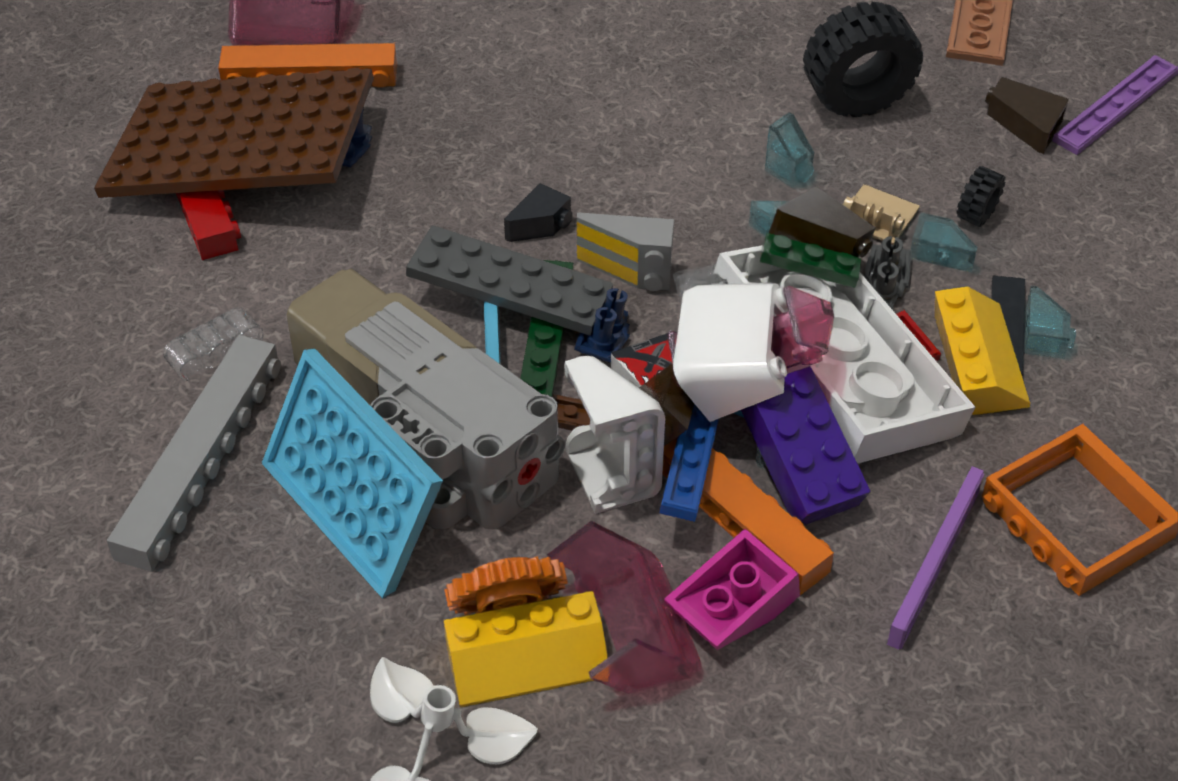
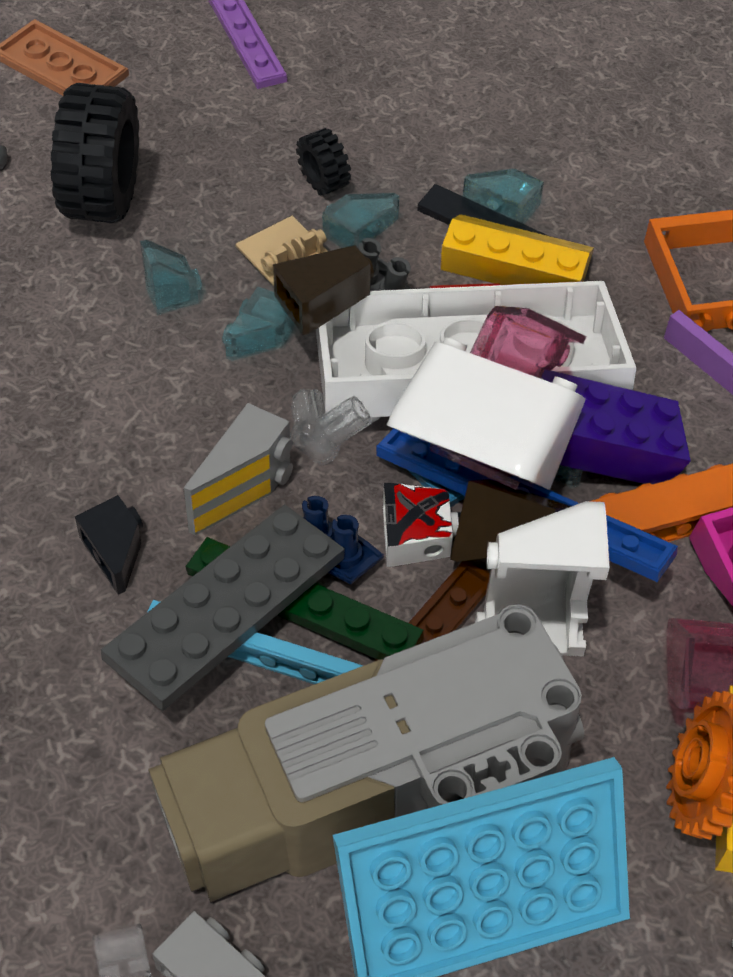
camera: 70 degrees left, 5 degrees up
(810, 260) = (363, 317): dark green plate -> none
(1026, 112) = (219, 84): dark brown slope -> none

